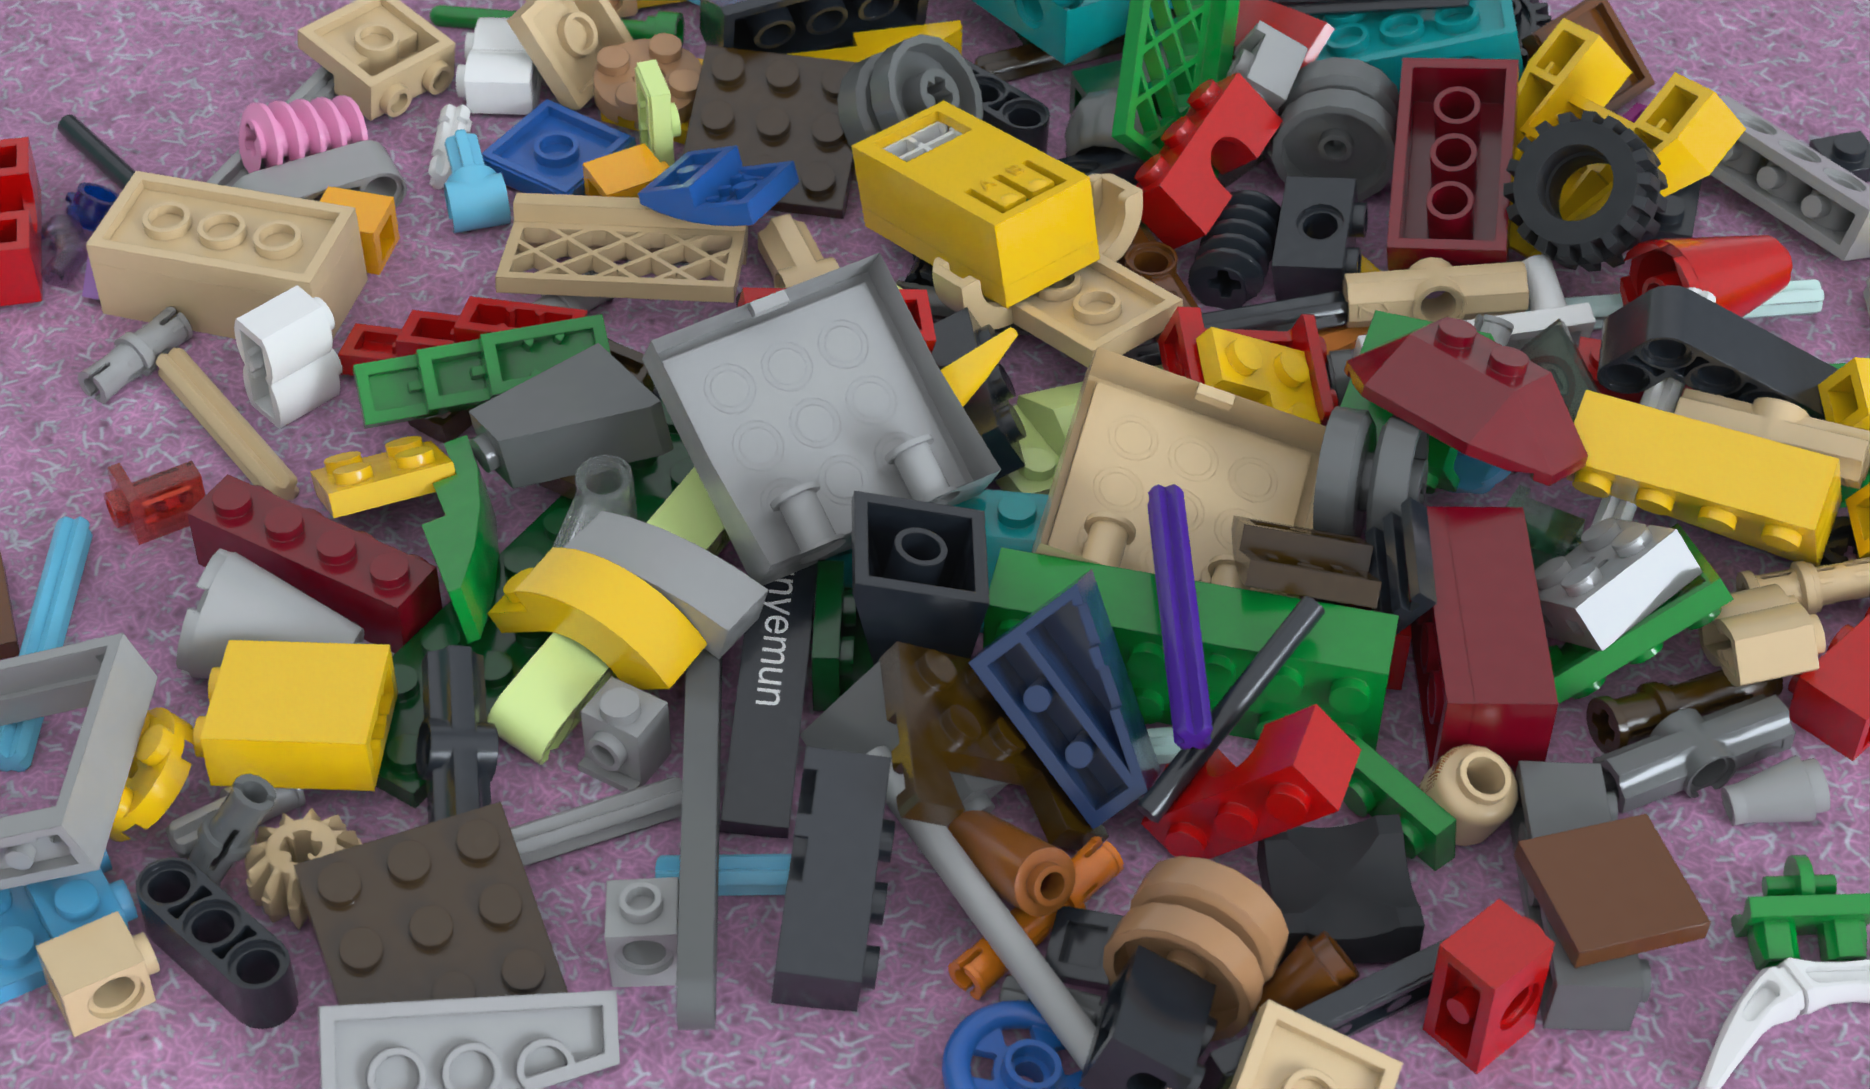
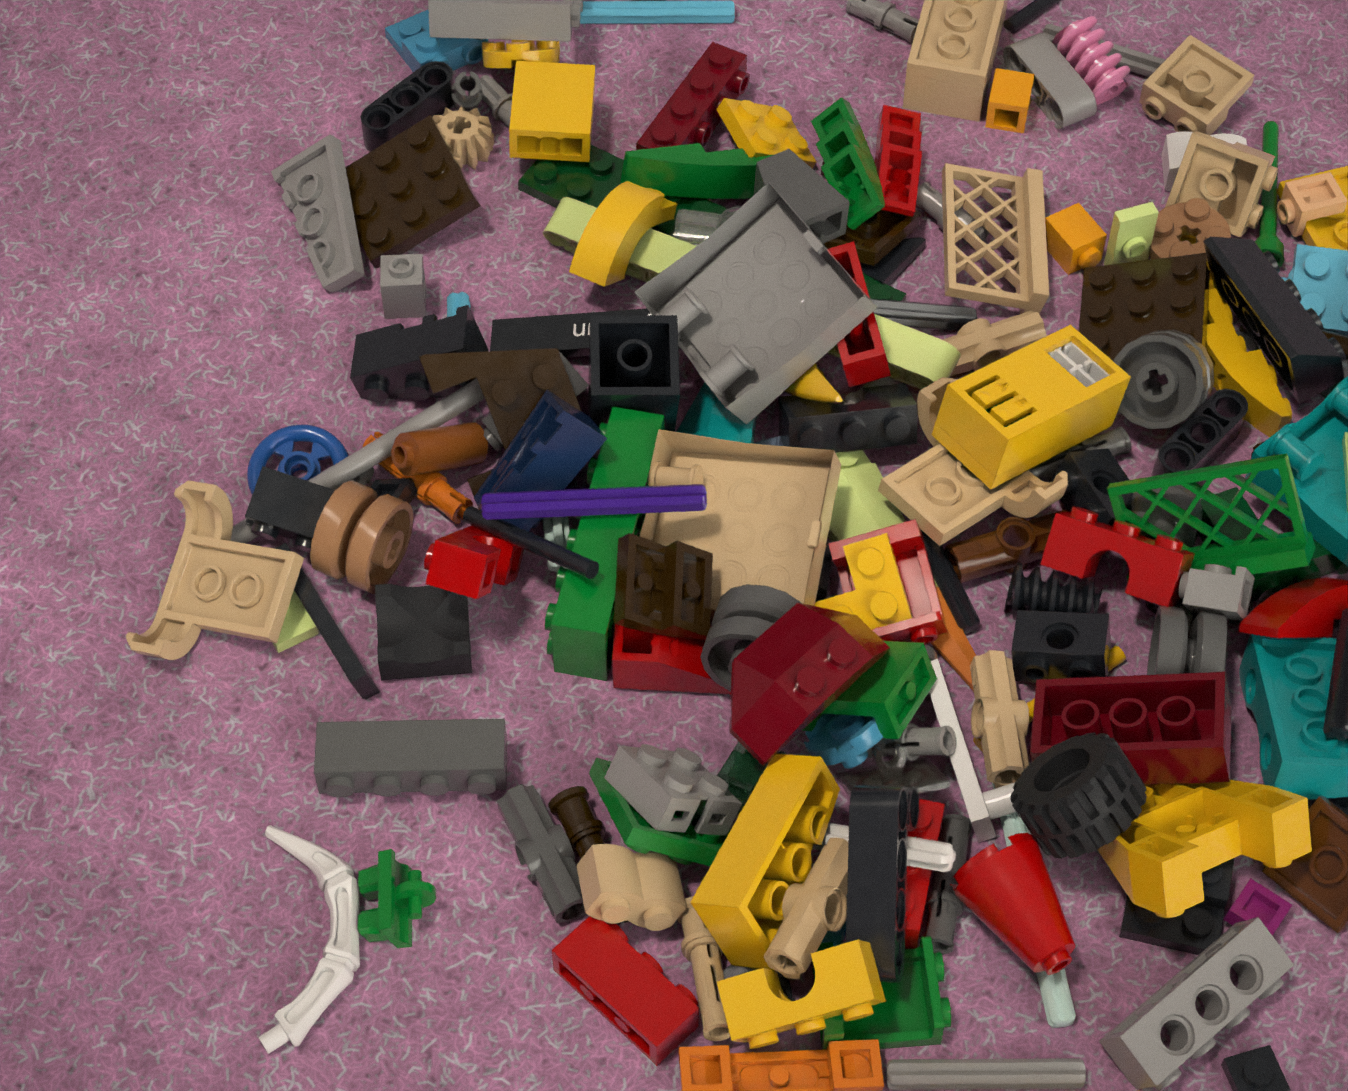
camera: 90 degrees right, 10 degrees up
(98, 972) = (387, 60): tan brick -> none
(155, 503) = (747, 37): clear red bracket -> none
(226, 424) = (826, 66): tan axle -> none
(252, 605) = (631, 91): light grey cone -> none
(288, 356) = (862, 72): white brick -> none
(450, 120) = (1117, 146): white axle -> none
(455, 740) = (535, 186): black piece -> none
(473, 191) = (1059, 158): medium azure axle -> none
(549, 150) = (1111, 188): blue plate -> none
(598, 821) = (499, 265): light grey axle -> none
(624, 735) = (550, 266): light grey brick -> none
(699, 584) = (645, 255): light grey slope -> none
(699, 846) = (427, 296): dark grey beam -> none
(717, 189) = (1053, 274): blue slope -> none
(1281, 315) = (960, 603): black axle -> none
(1309, 973) = (351, 607): reddish brown cone -> none
(1383, 790) = (496, 667): green plate -> none
(1396, 571) = (655, 642): black tile -> none
(1474, 789) = (494, 695): tan head -> none
(1484, 643) = (600, 702): dark red piece -> none
(1488, 985) = (325, 685): red brick -> none
(1611, 890) = (384, 754): reddish brown tile -> none
(1781, 793) = (508, 906): light grey cone -> none

